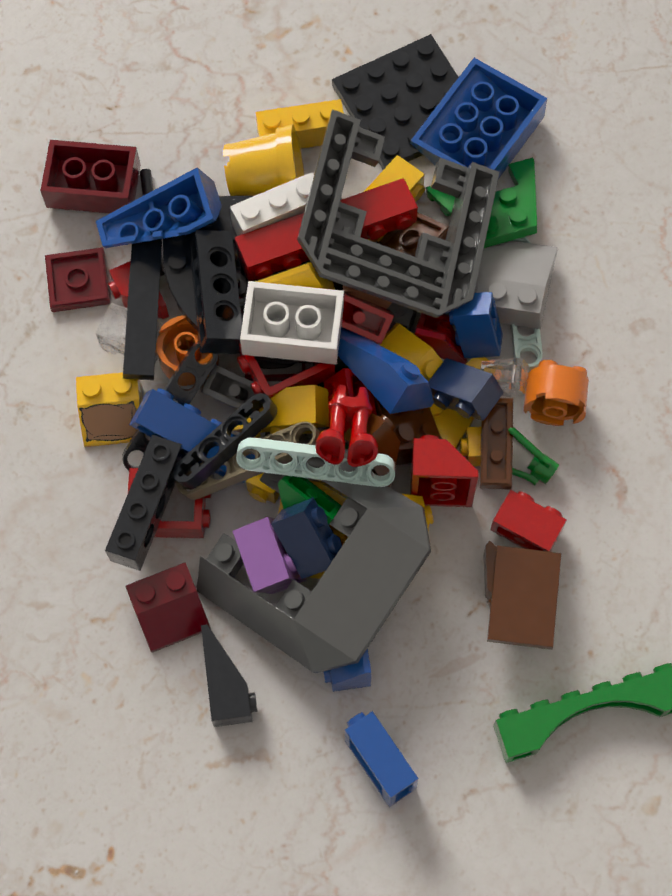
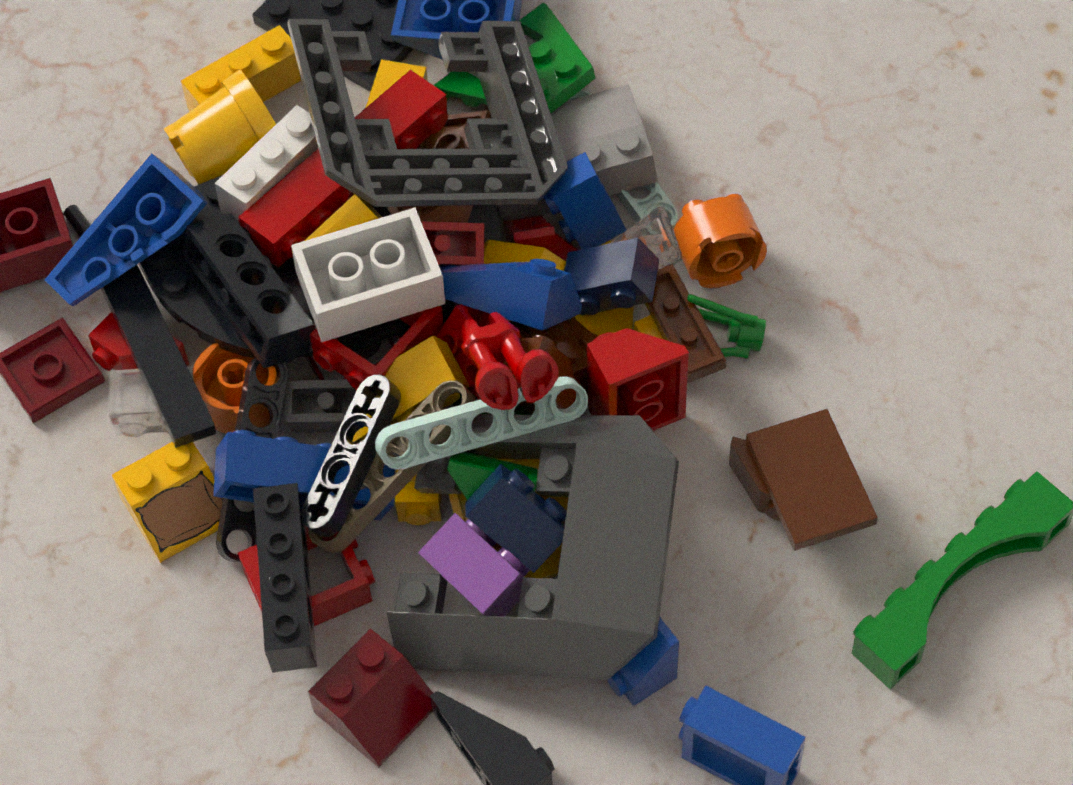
camera: 25 degrees left, 10 degrees down
(528, 522) = (764, 397): red brick -> none

